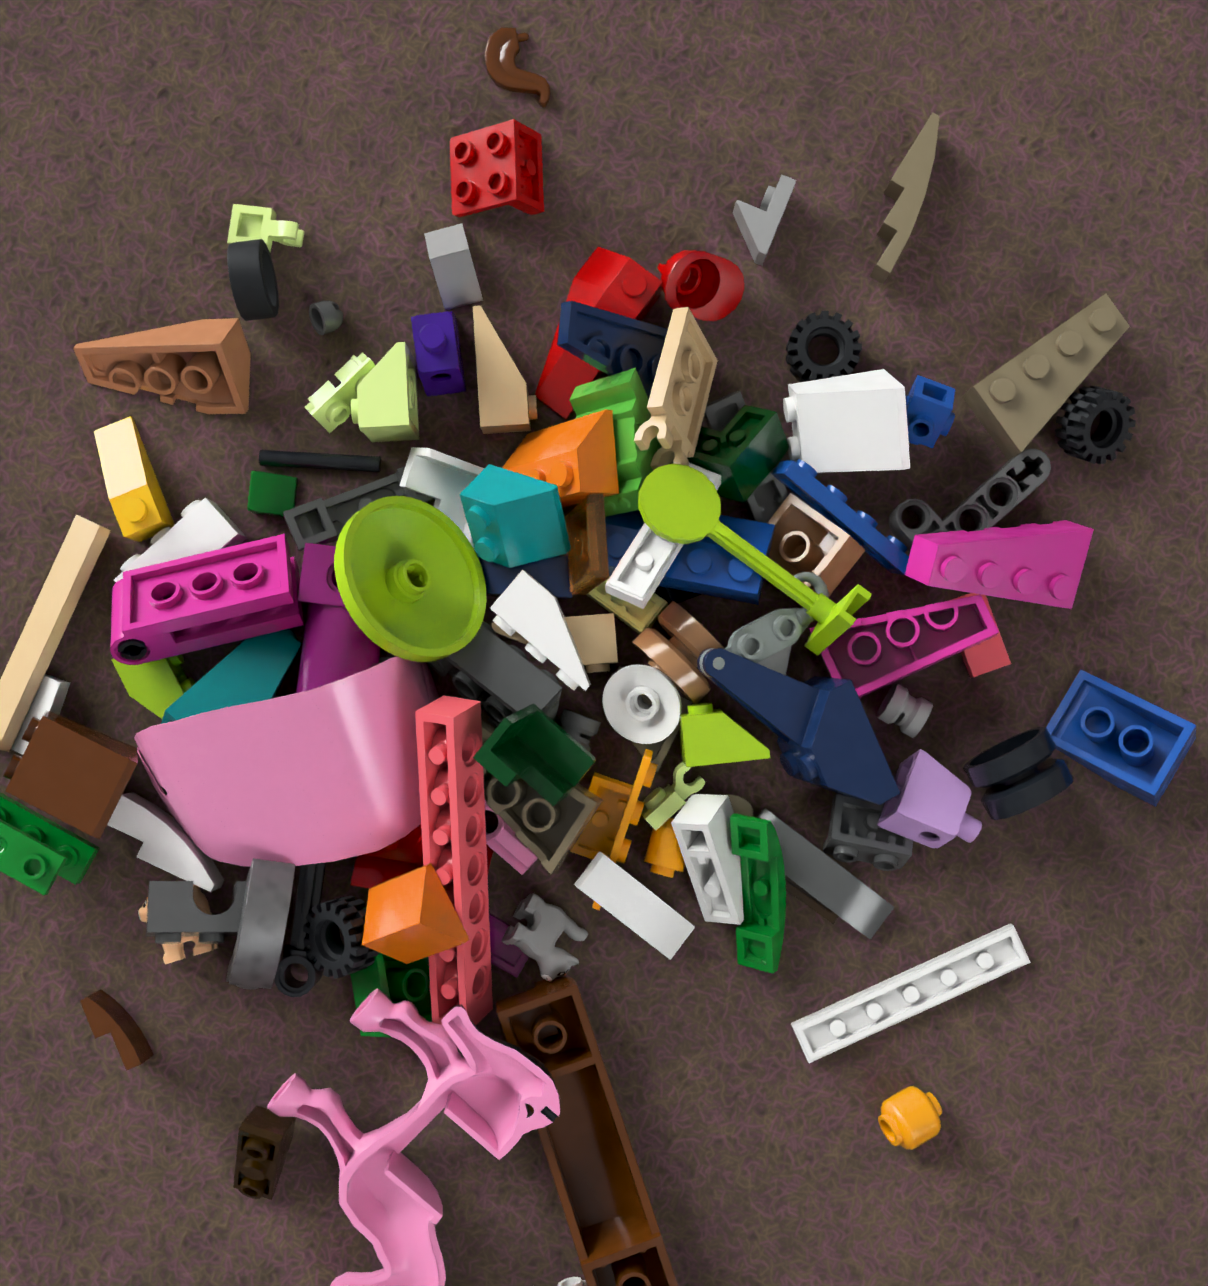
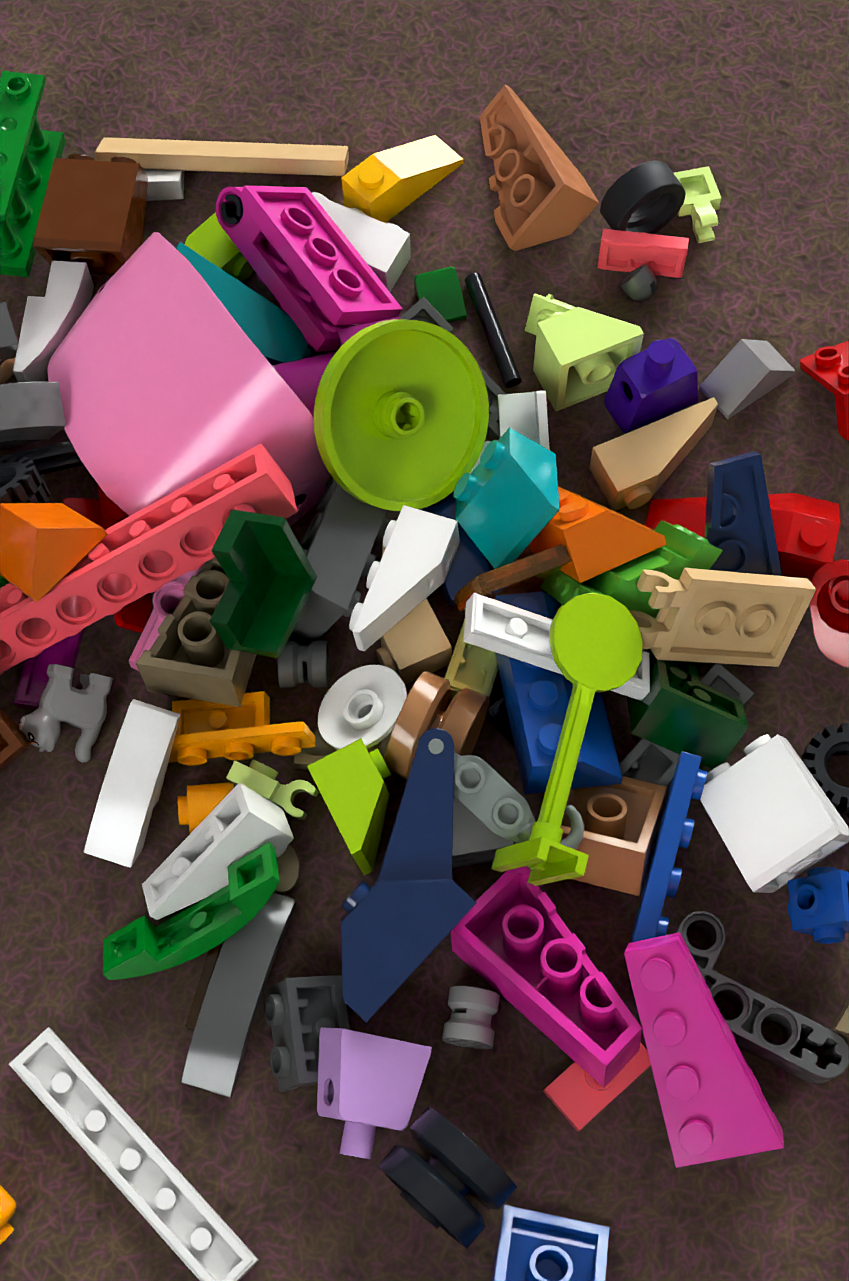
camera: 70 degrees right, 20 degrees down
(296, 301) = (629, 250): none -> coral plate

